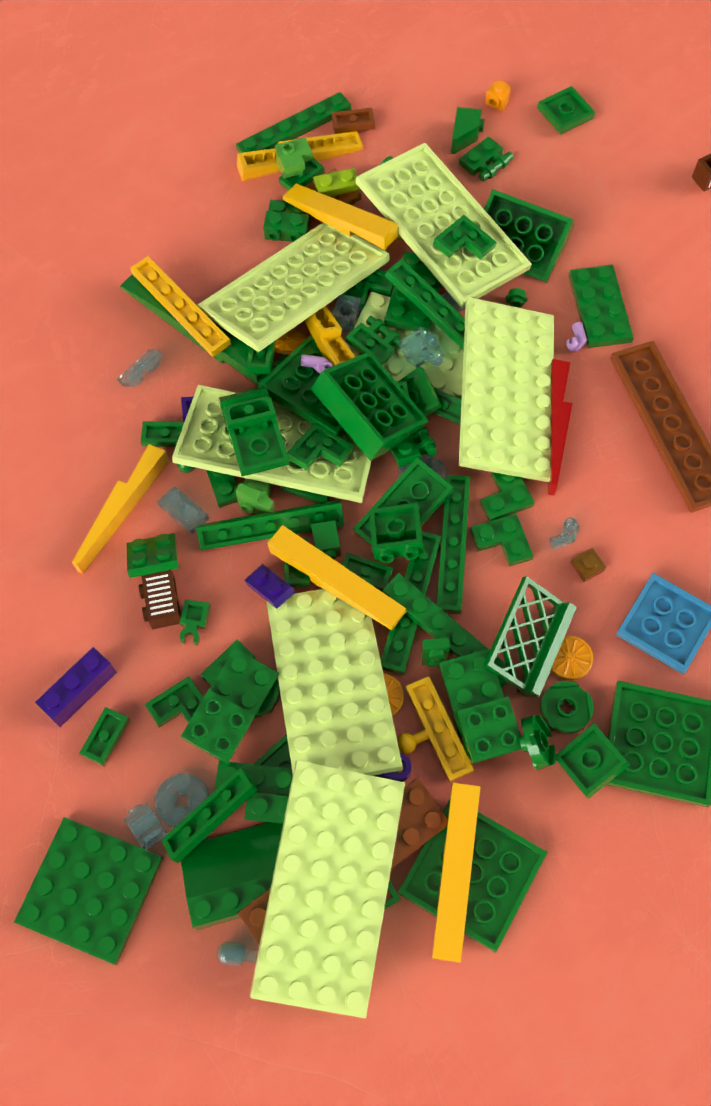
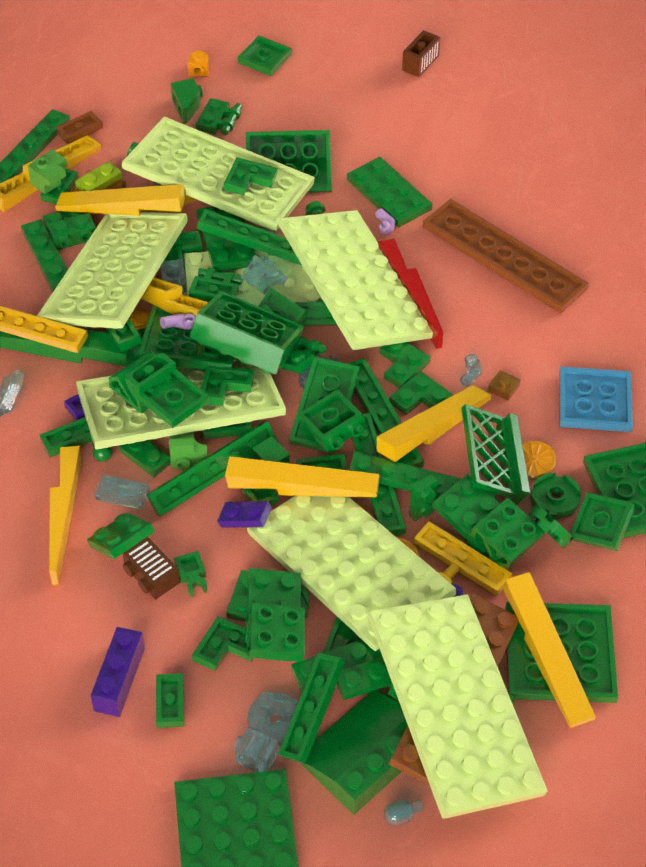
camera: 30 degrees left, 15 degrees down
(252, 237) = (44, 252): none -> green plate
(490, 575) = (429, 424): none -> yellow slope

